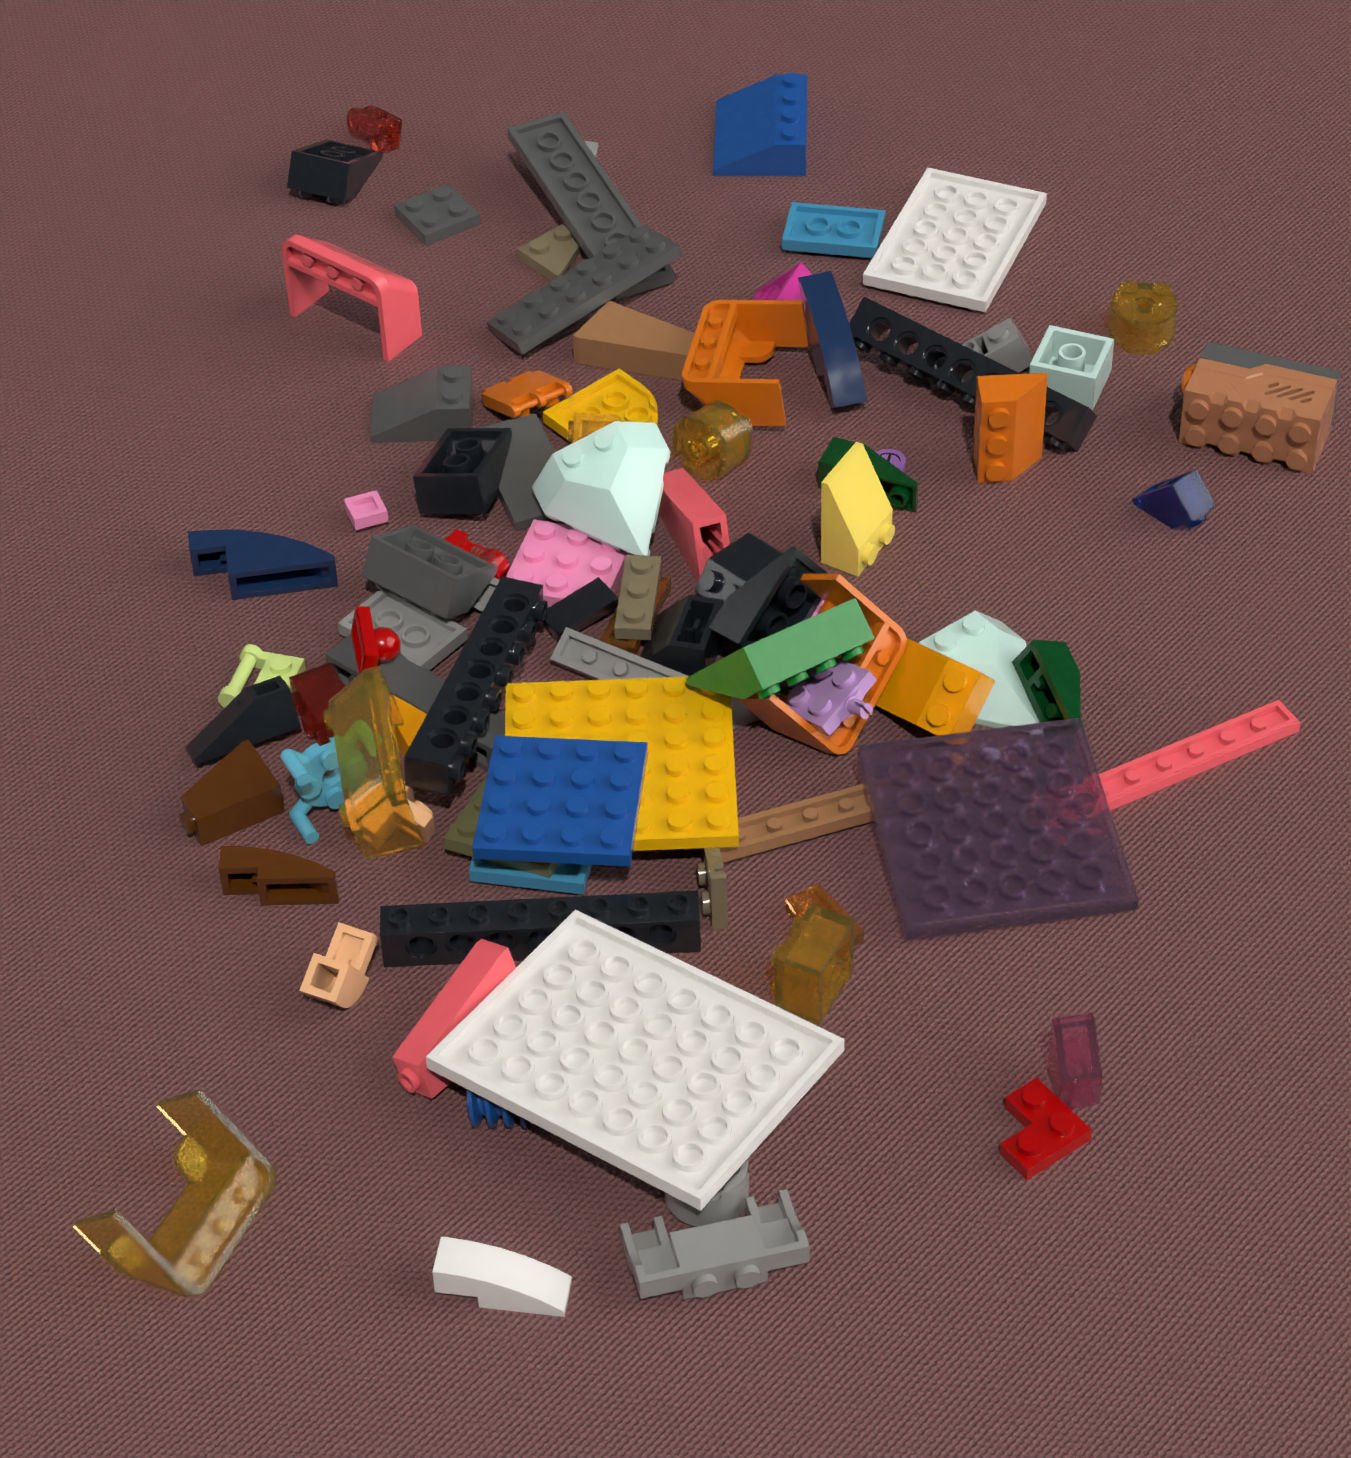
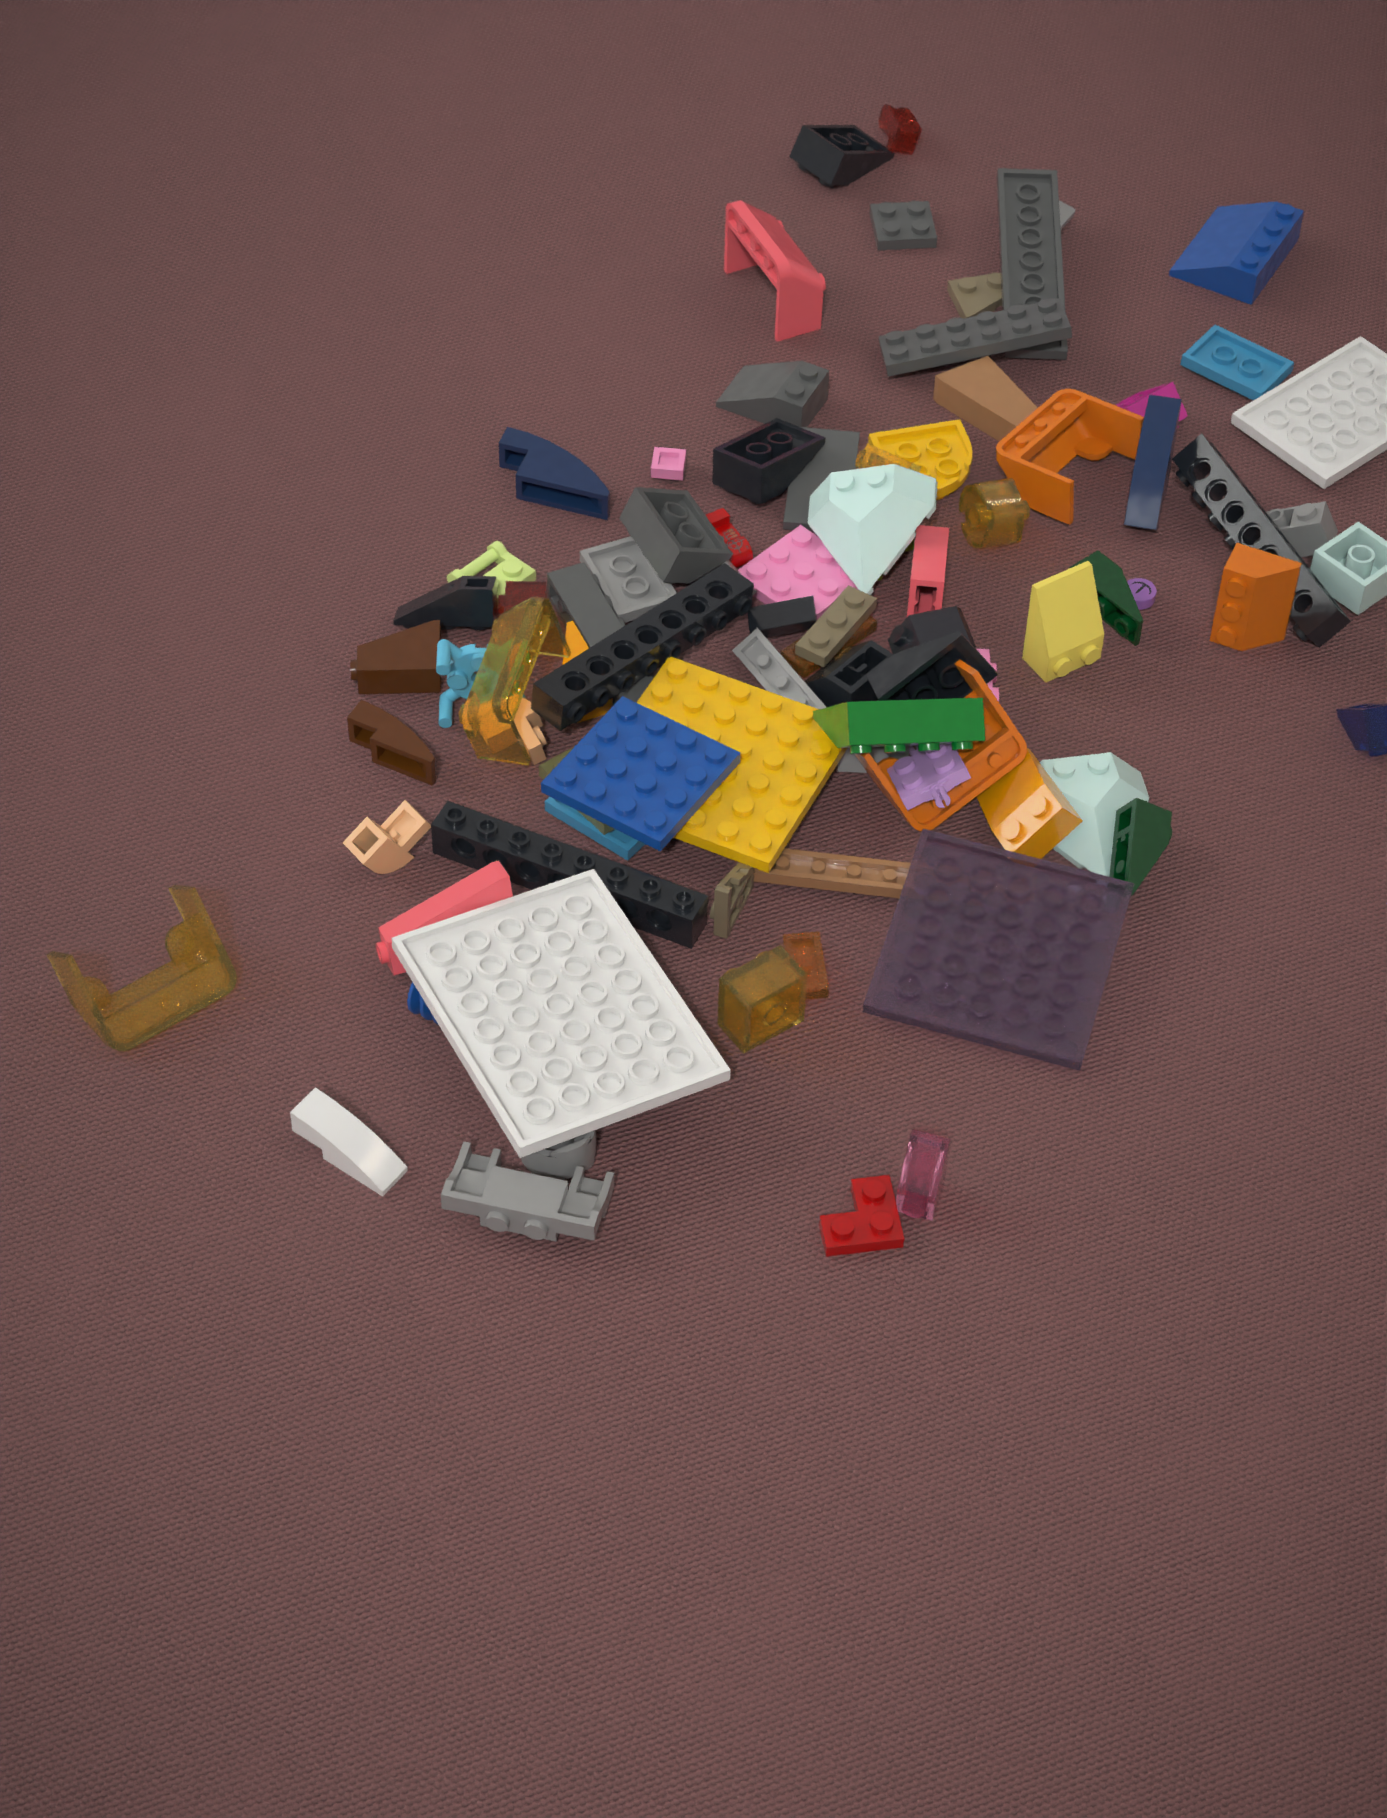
camera: 25 degrees right, 5 degrees up
(372, 644) = (583, 579): red tile -> none
(525, 392) = (869, 410): orange plate -> none
(1197, 753) = (1225, 958): coral tile -> none

